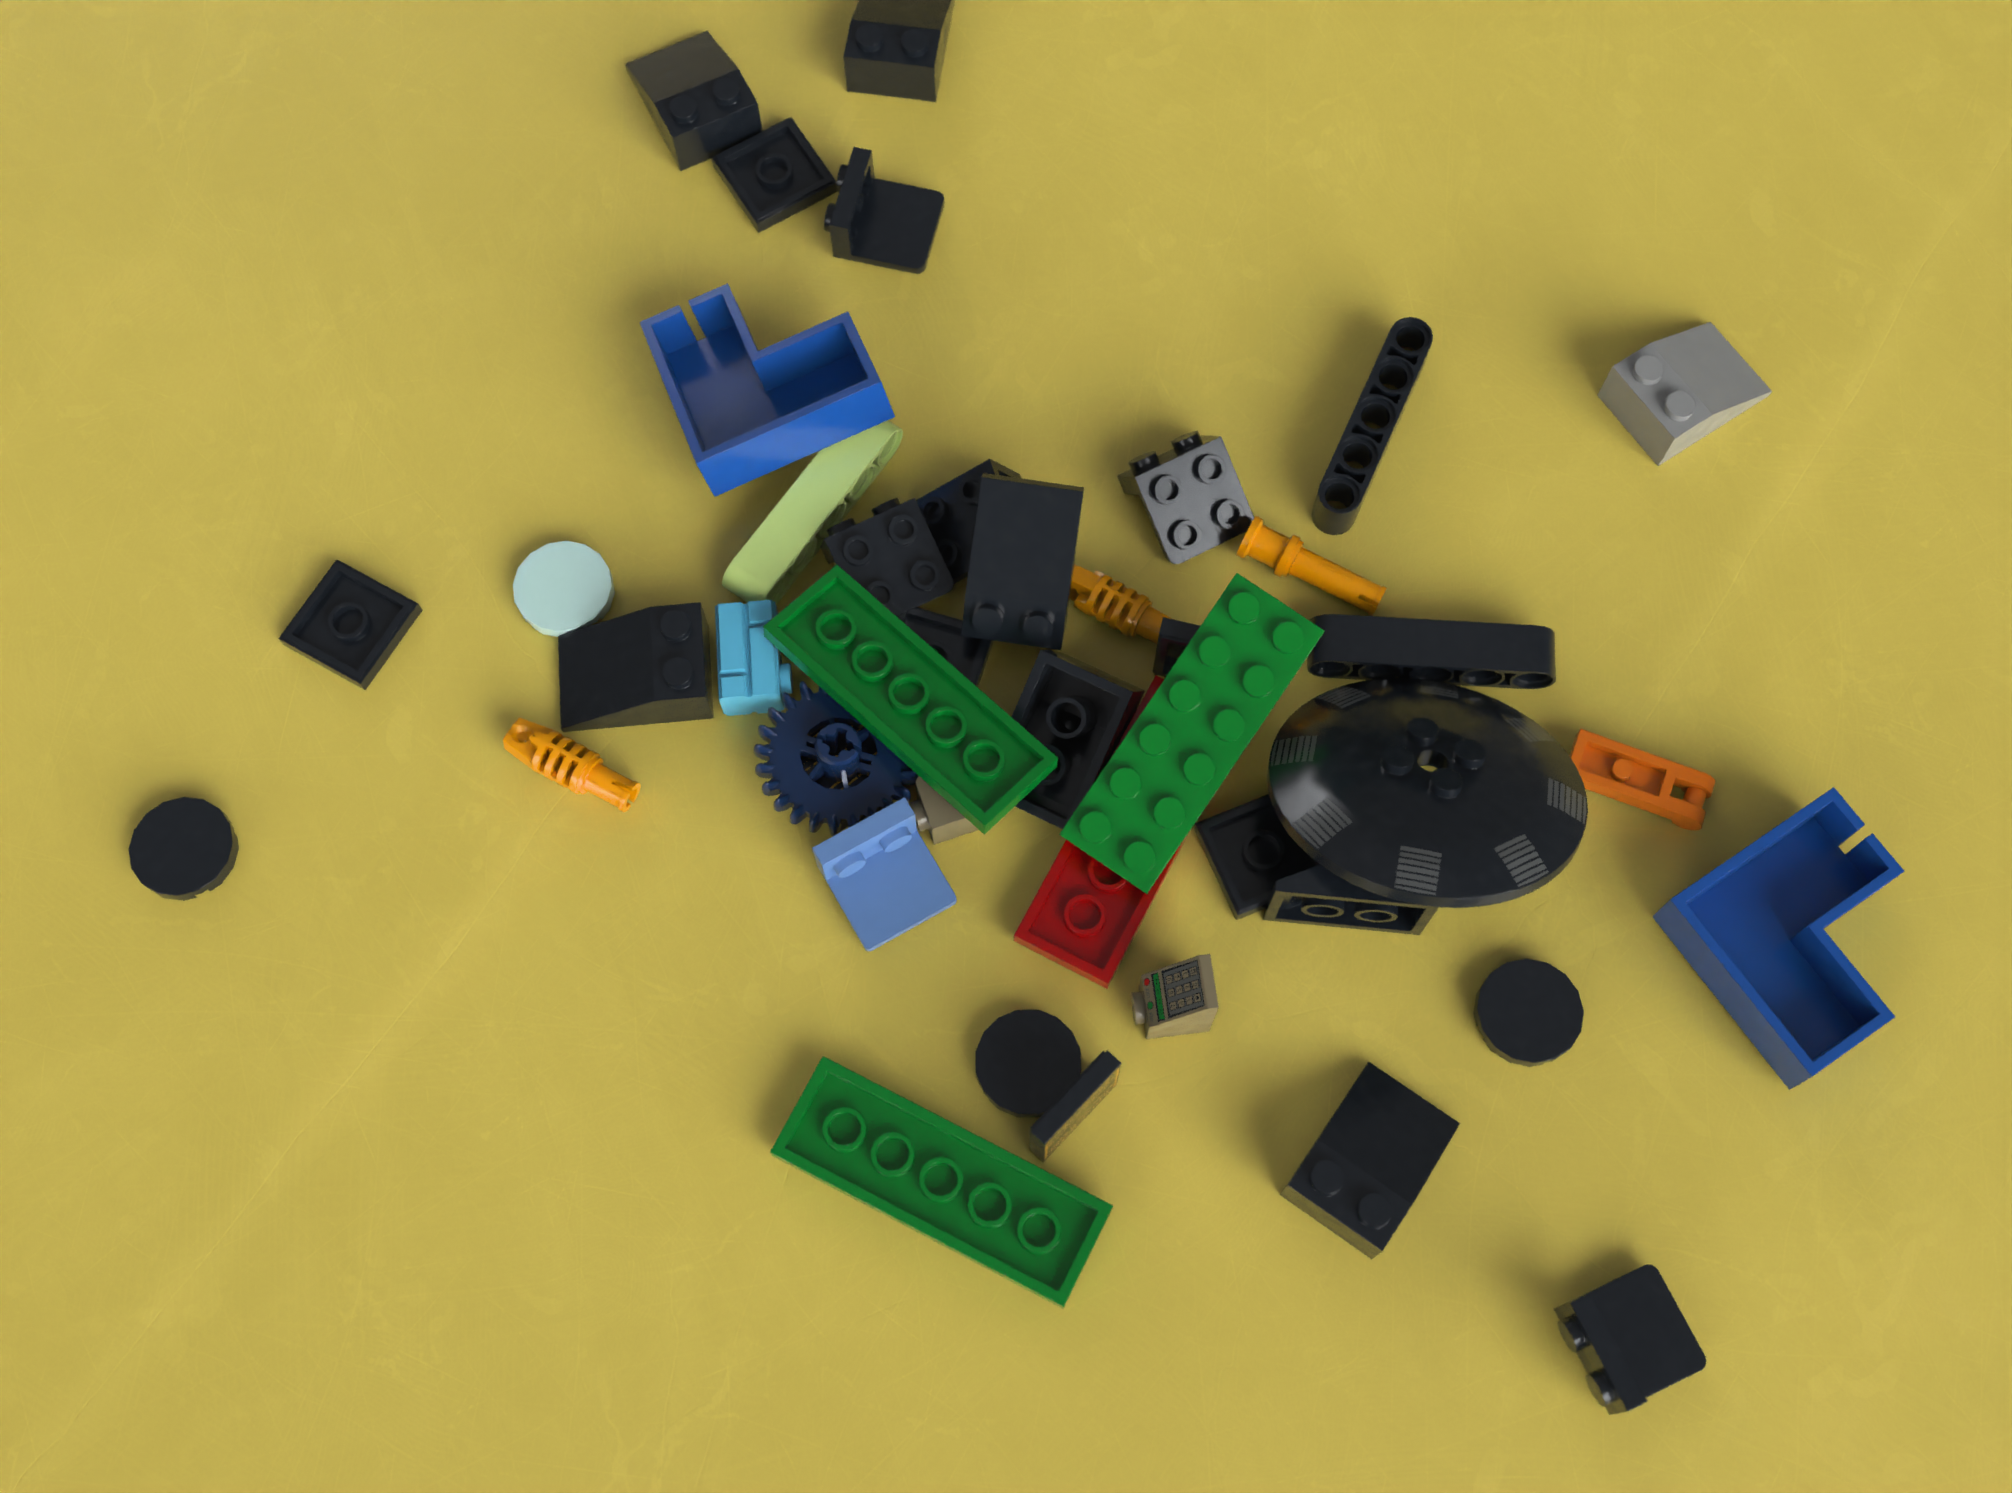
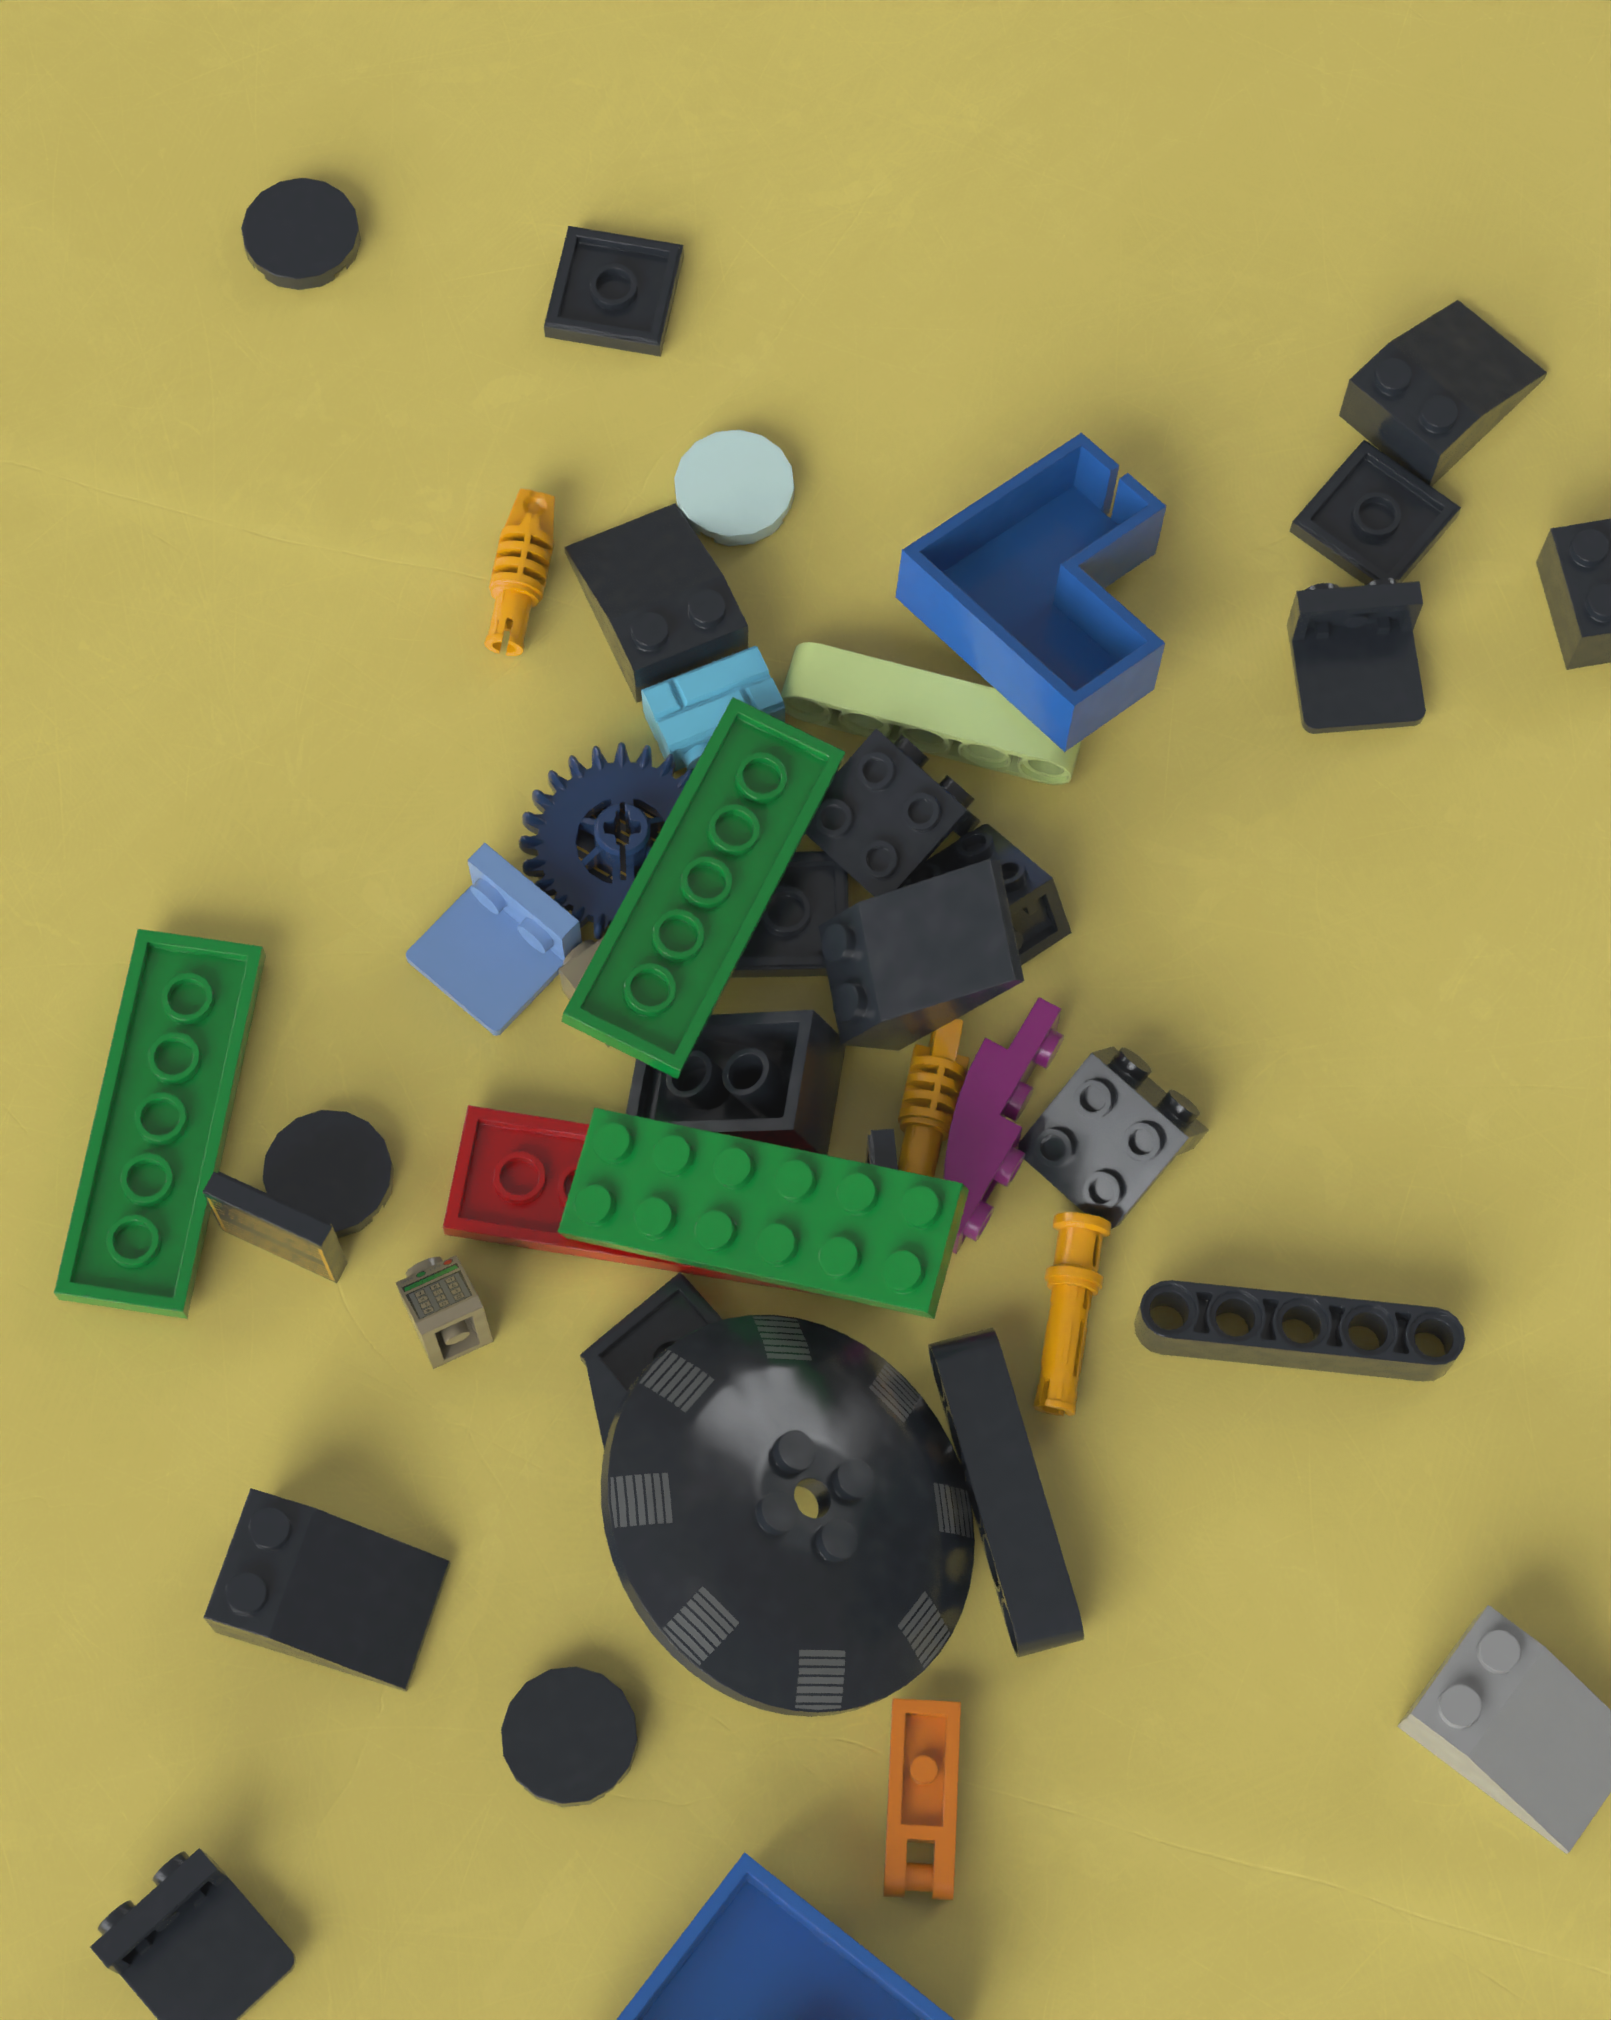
camera: 70 degrees right, 0 degrees up
(1170, 581) = (980, 1138): none -> magenta slope

